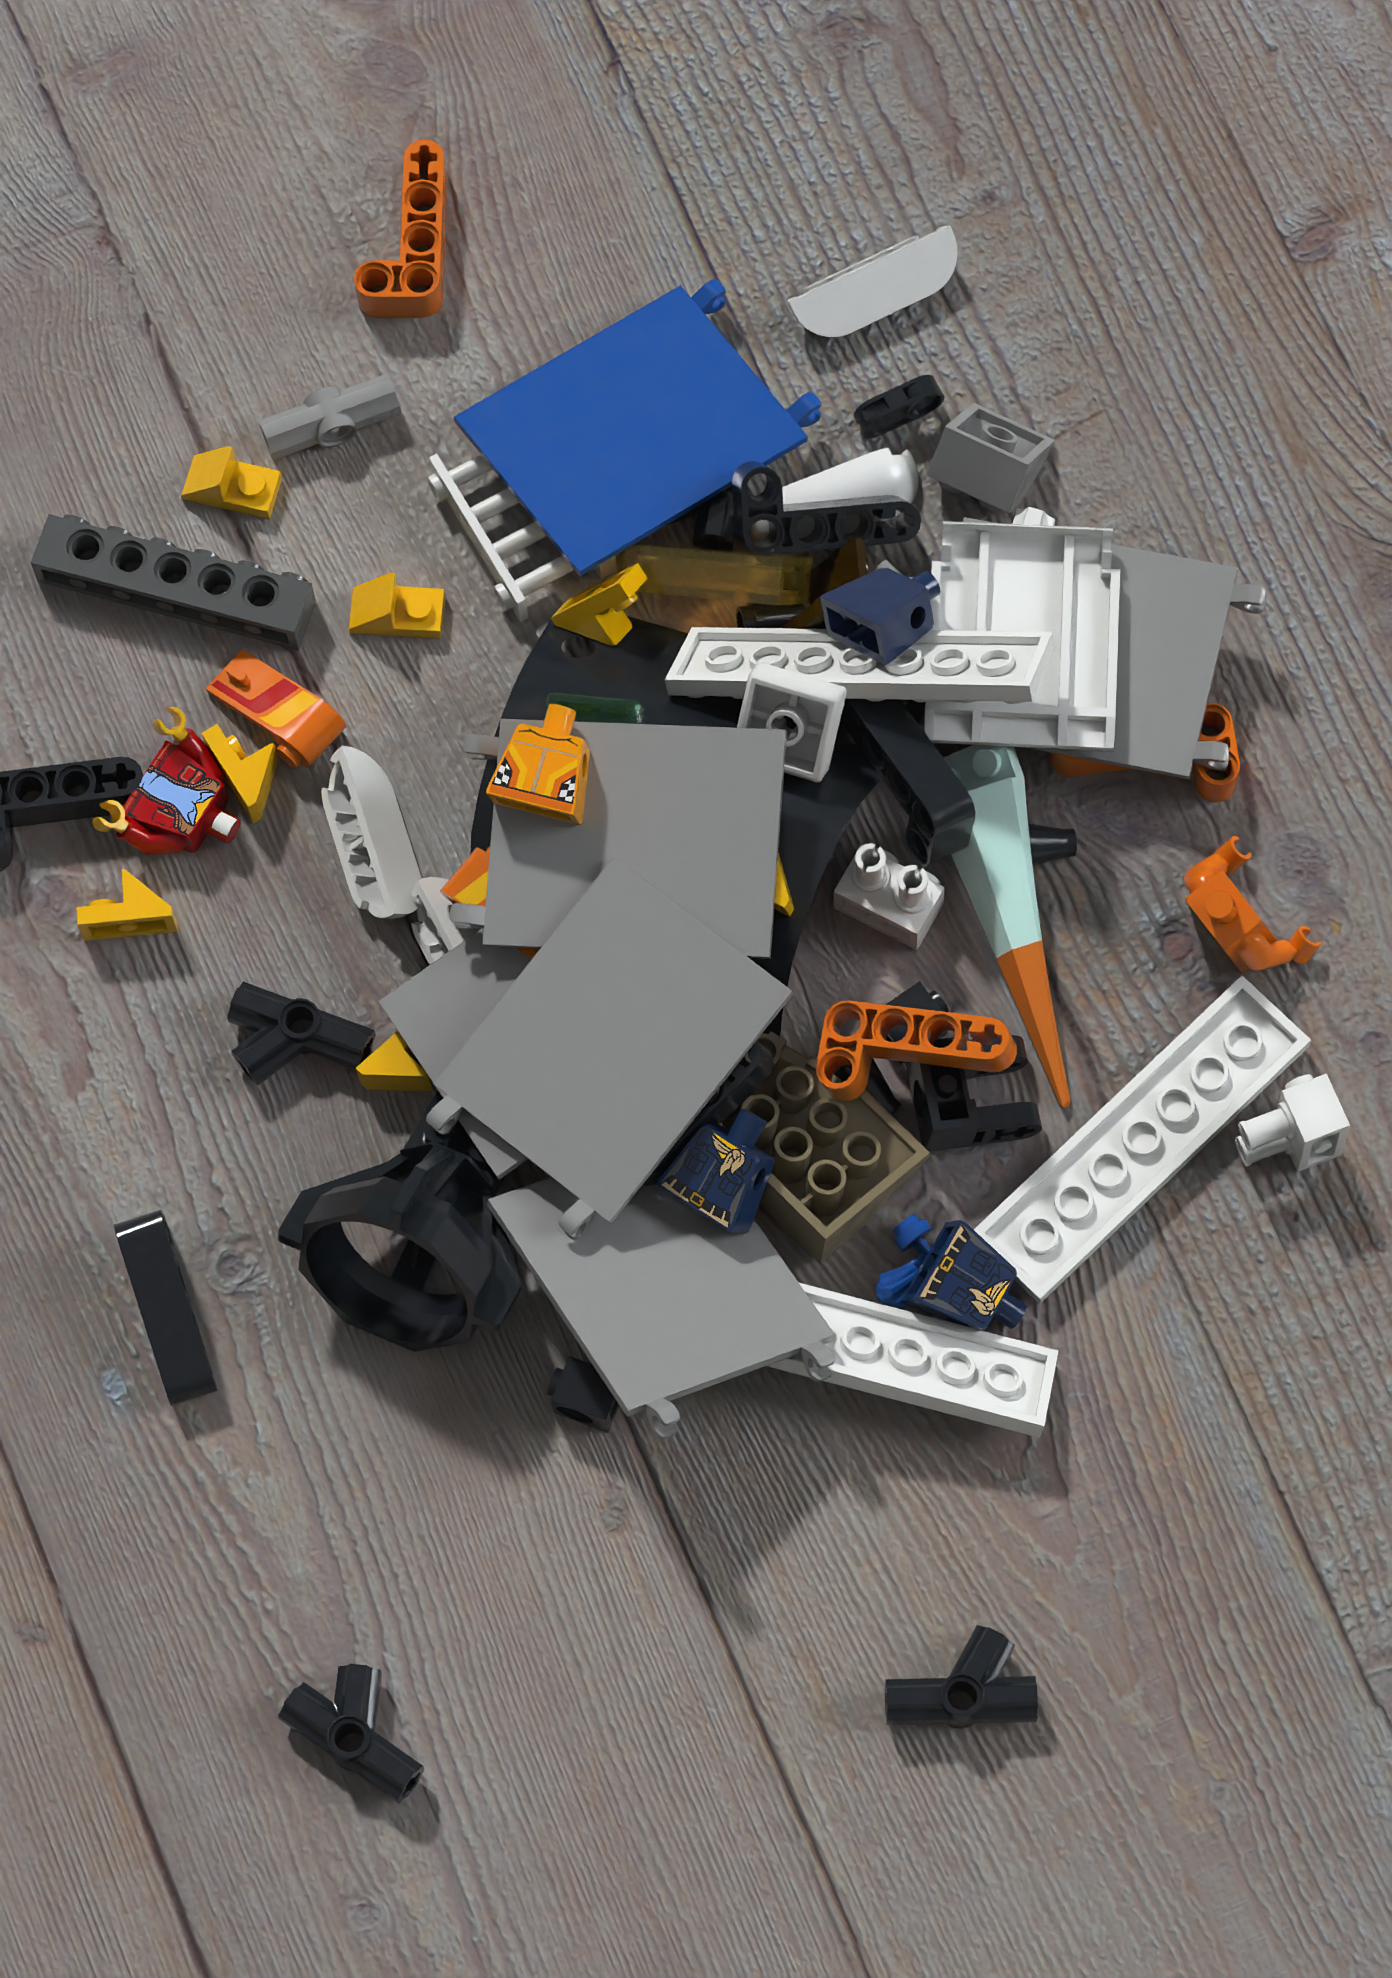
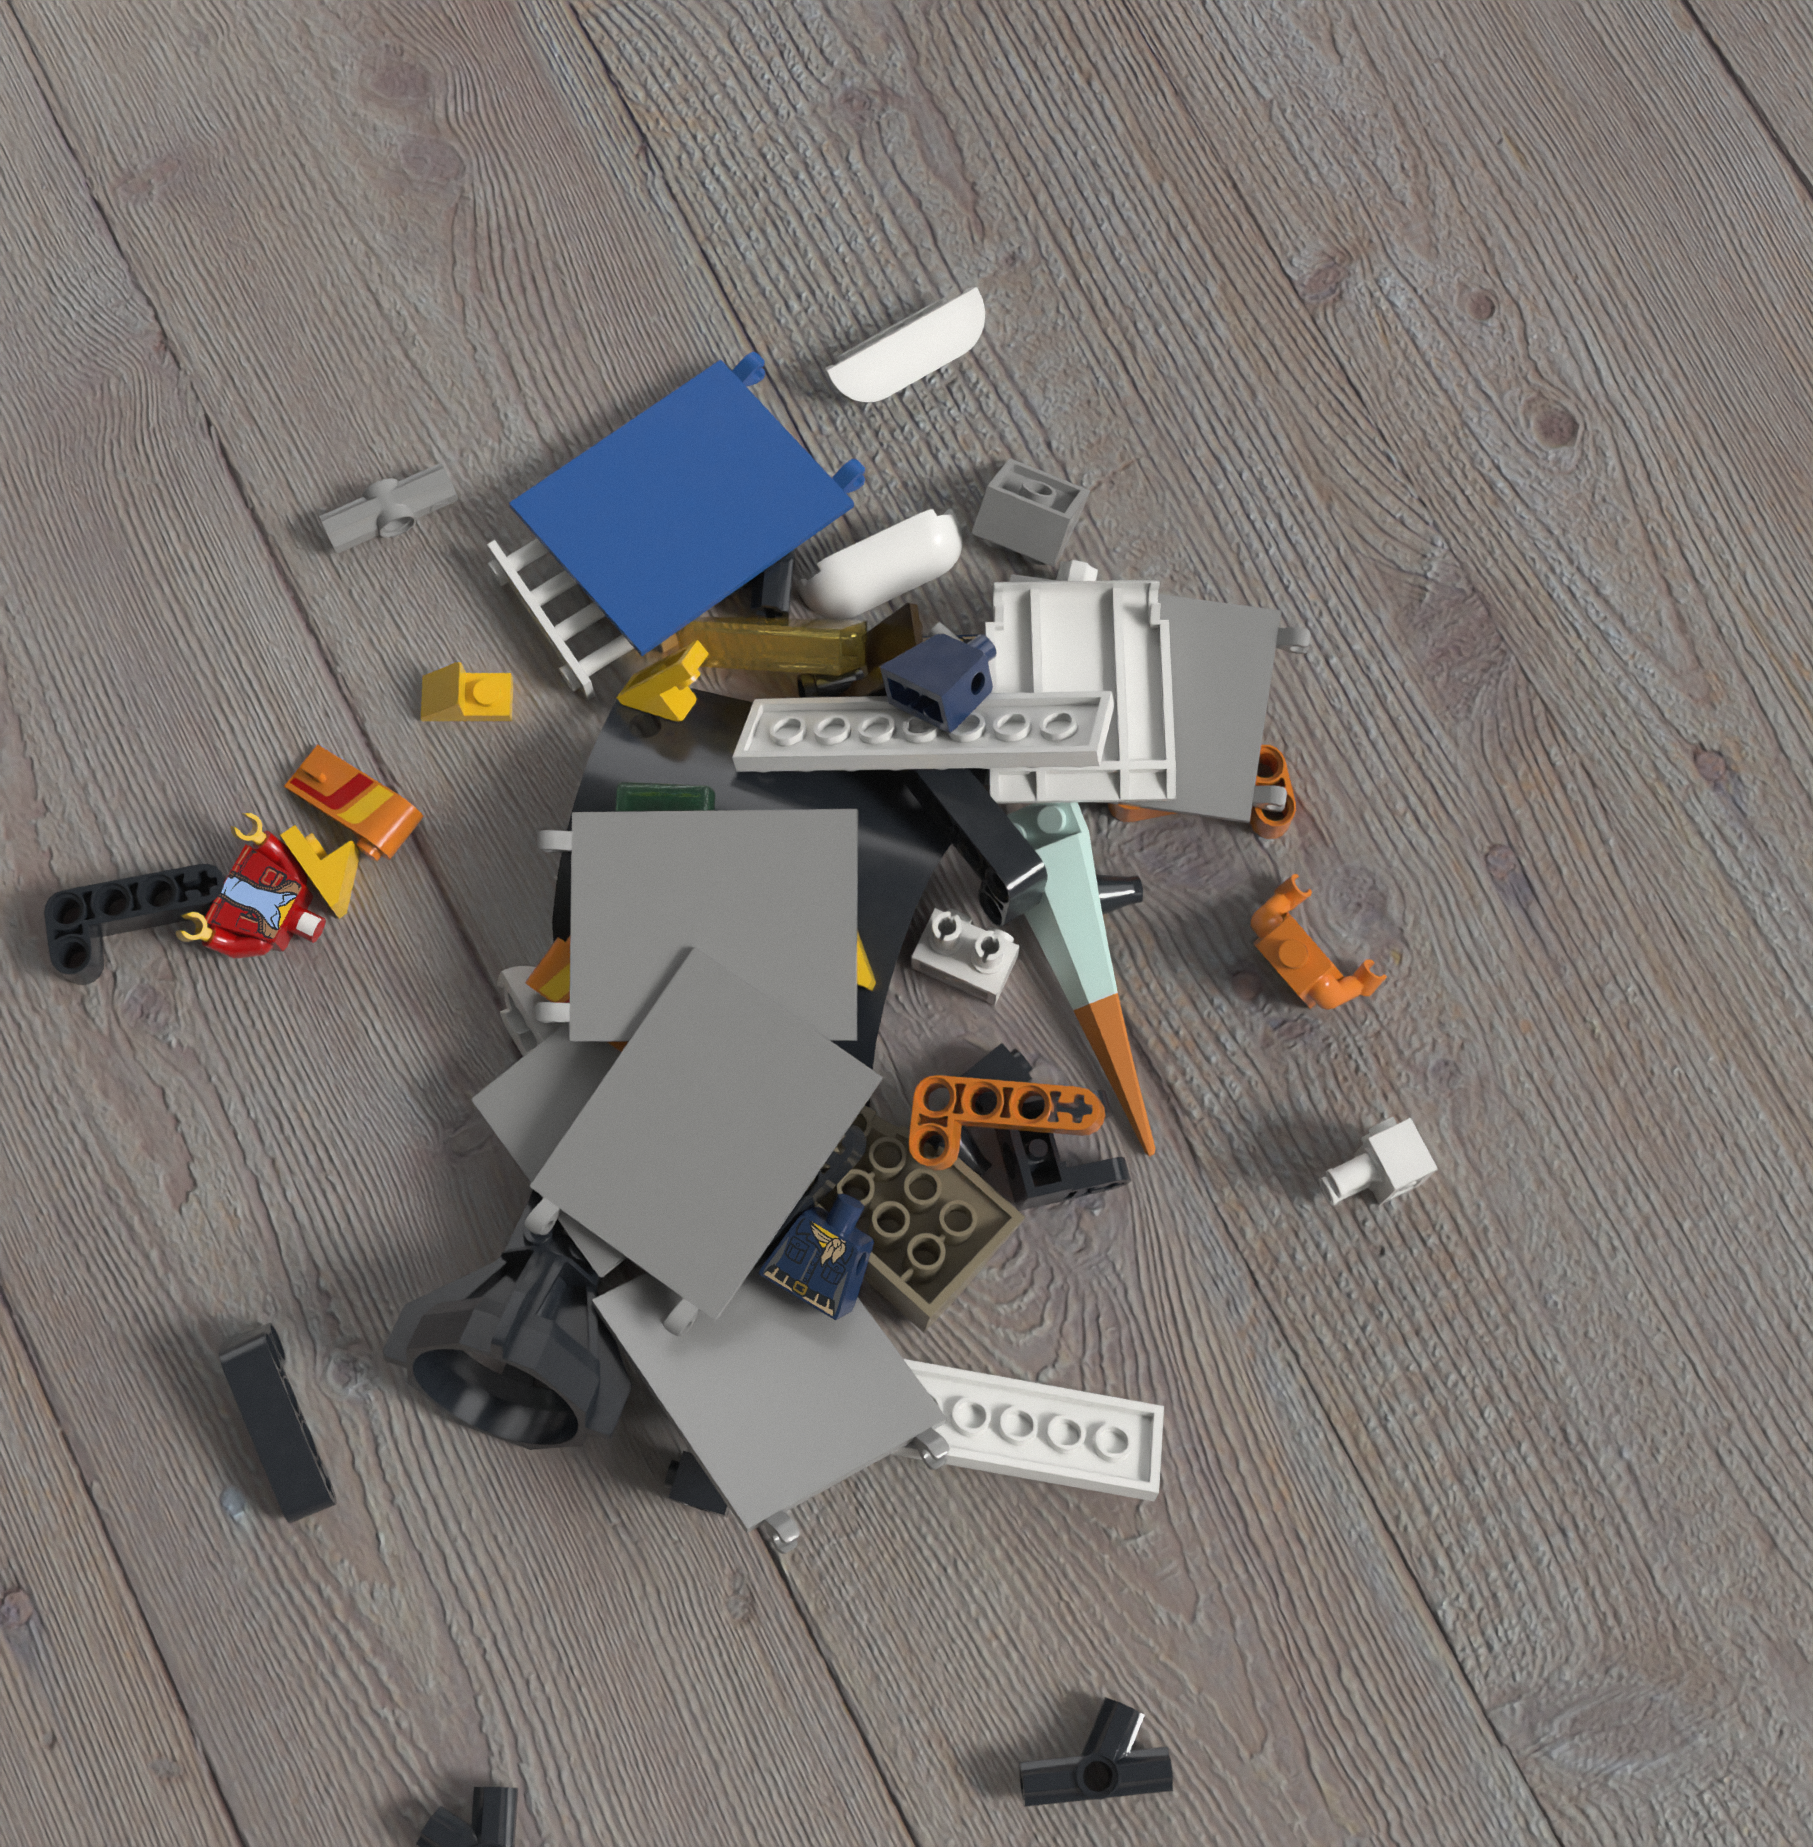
camera: 10 degrees left, 5 degrees up
(138, 914) = (228, 1020): yellow slope -> none
(232, 485) = (295, 580): yellow slope -> none
(277, 1045) = (372, 1144): black piece -> none
(278, 623) = (353, 716): dark grey brick -> none
(370, 835) = (454, 926): white brick -> none
(393, 1068) = (488, 1161): yellow slope -> none
(417, 229) = (461, 318): orange beam -> none
(544, 769) = (619, 863): light orange torso -> none
(810, 703) = (879, 777): white brick -> none
(826, 515) = (878, 579): black beam -> none
(895, 1282) = (1005, 1348): blue piece -> none
(899, 406) = (939, 466): black piece -> none
(965, 1281) = (1068, 1344): dark blue torso -> none
(1142, 1137) = (1226, 1185): white plate -> none

